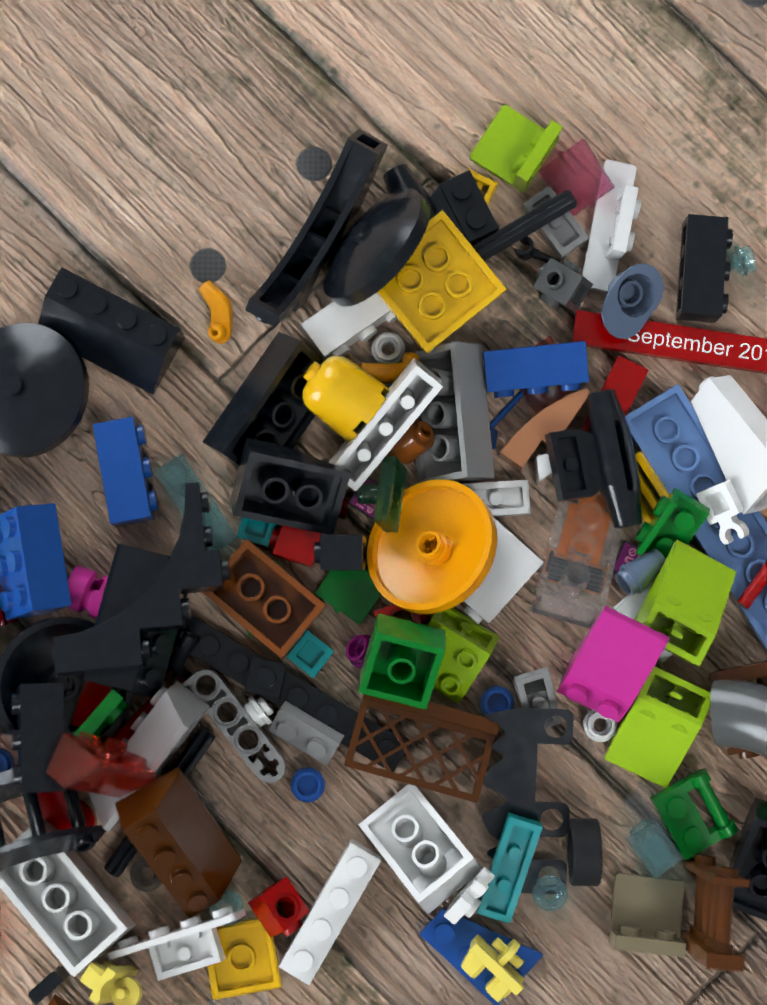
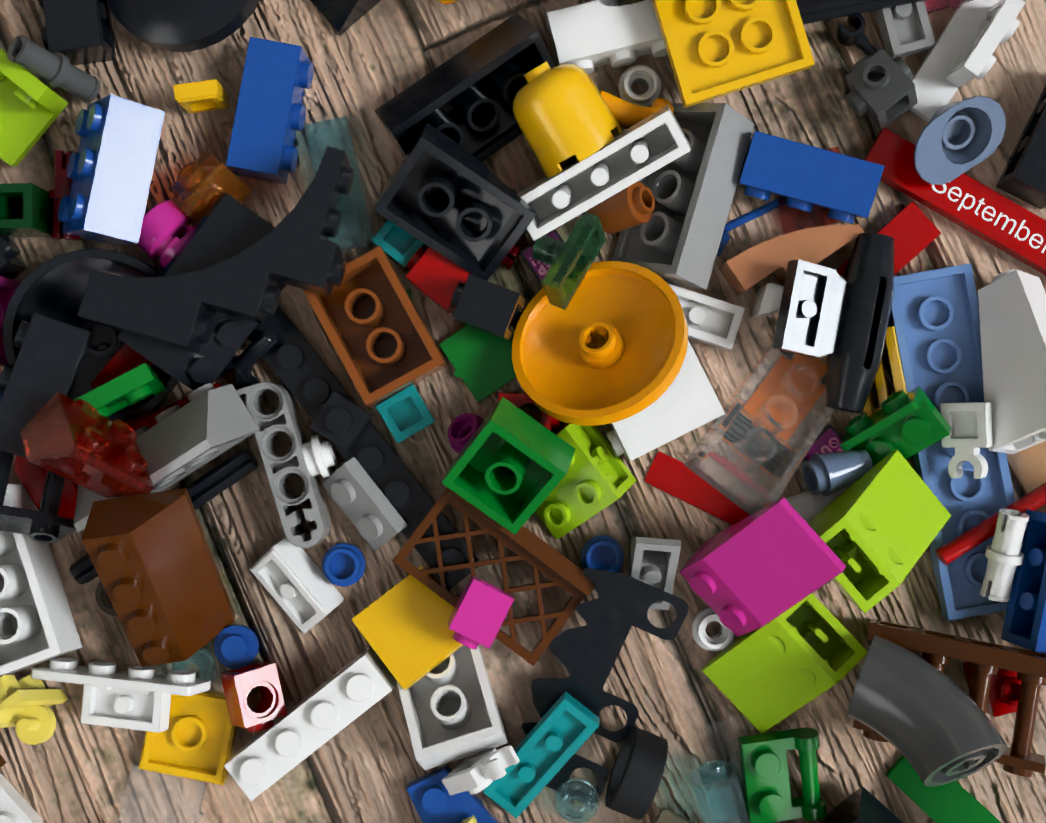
camera: 20 degrees right, 5 degrees up
(70, 480) = (201, 96): none -> yellow tile
(100, 543) = (203, 182): none -> clear orange brick
(251, 878) = (236, 646): none -> blue plate
(278, 814) = (296, 584): none -> white slope
(378, 812) = (408, 630): none -> yellow tile
(422, 777) = (479, 613): none -> dark pink brick
(533, 625) = (678, 480): none -> red sticker

